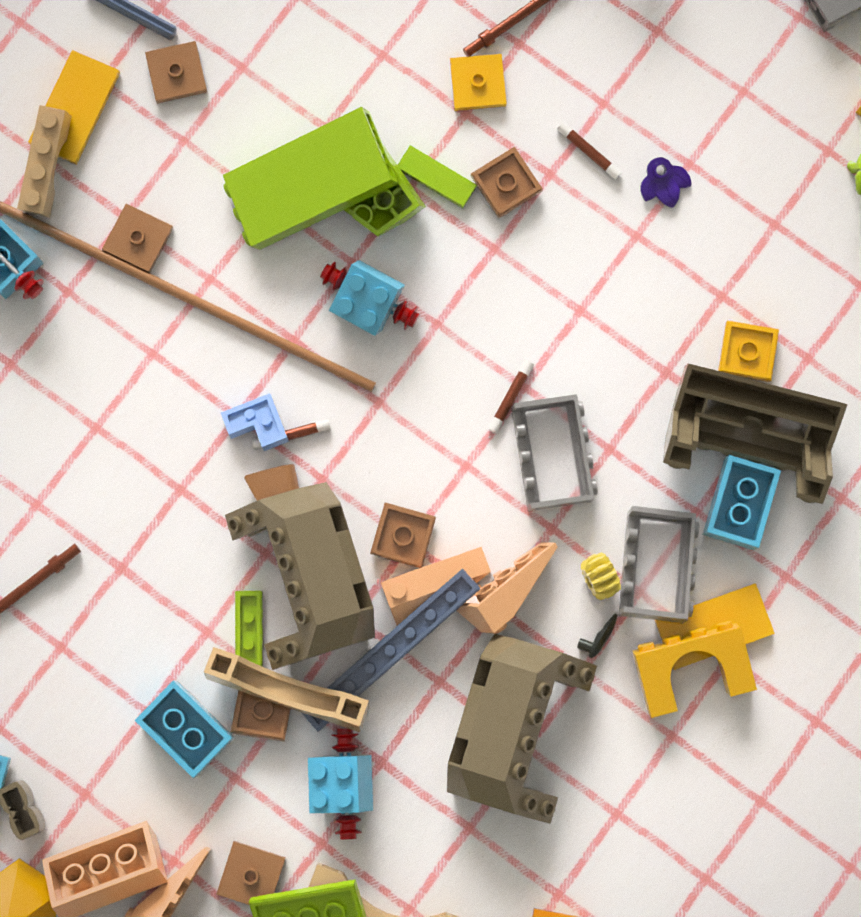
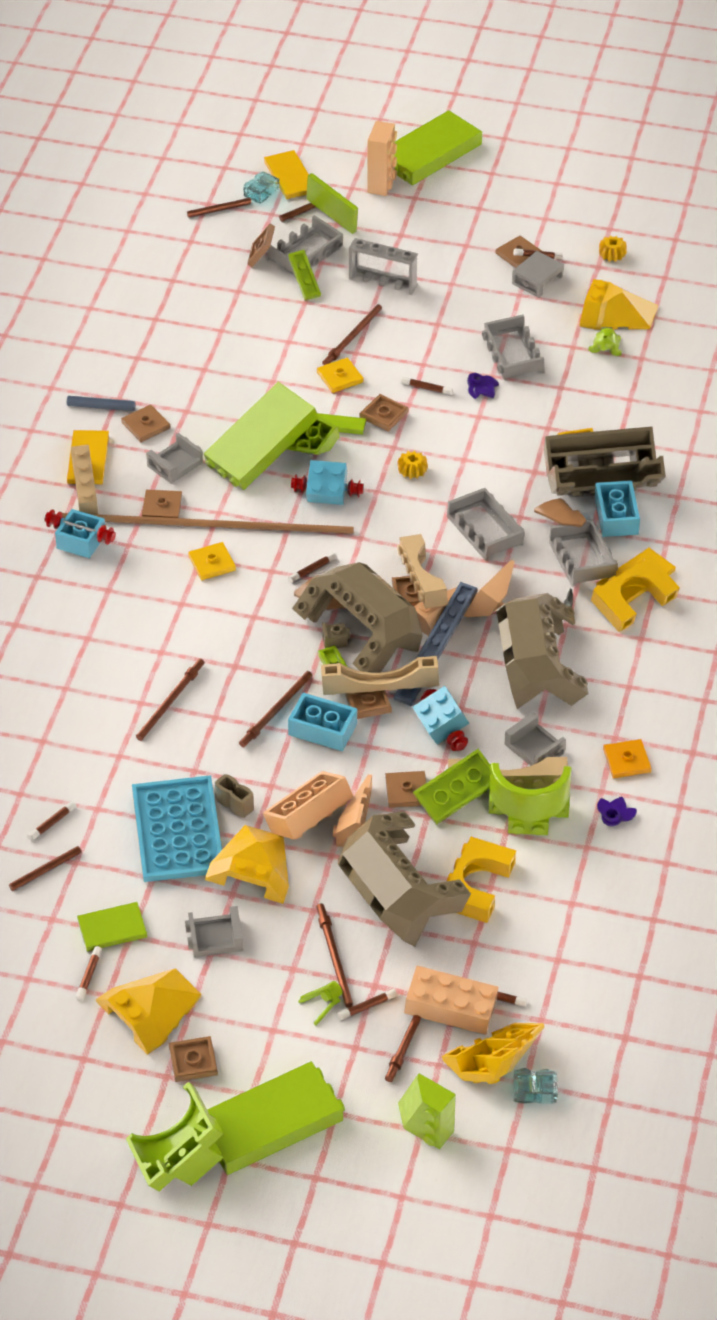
camera: 20 degrees left, 35 degrees down
(97, 698) = (254, 731): none -> copper bar
(163, 369) = (212, 561): none -> yellow plate
(187, 161) = (176, 459): none -> light grey panel
(257, 579) = (335, 635): none -> dark tan brick
(259, 416) = (287, 560): light blue plate -> none
(414, 572) = (430, 588): none -> tan arch
(448, 870) = (532, 741): none -> light grey panel
(502, 311) = (412, 464): none -> yellow gear
(510, 396) = (443, 509): copper bar -> none
(600, 576) = (550, 567): light yellow gear -> none
(660, 486) = (561, 513): none -> medium nougat panel
(739, 127) = (512, 347): none -> light grey window

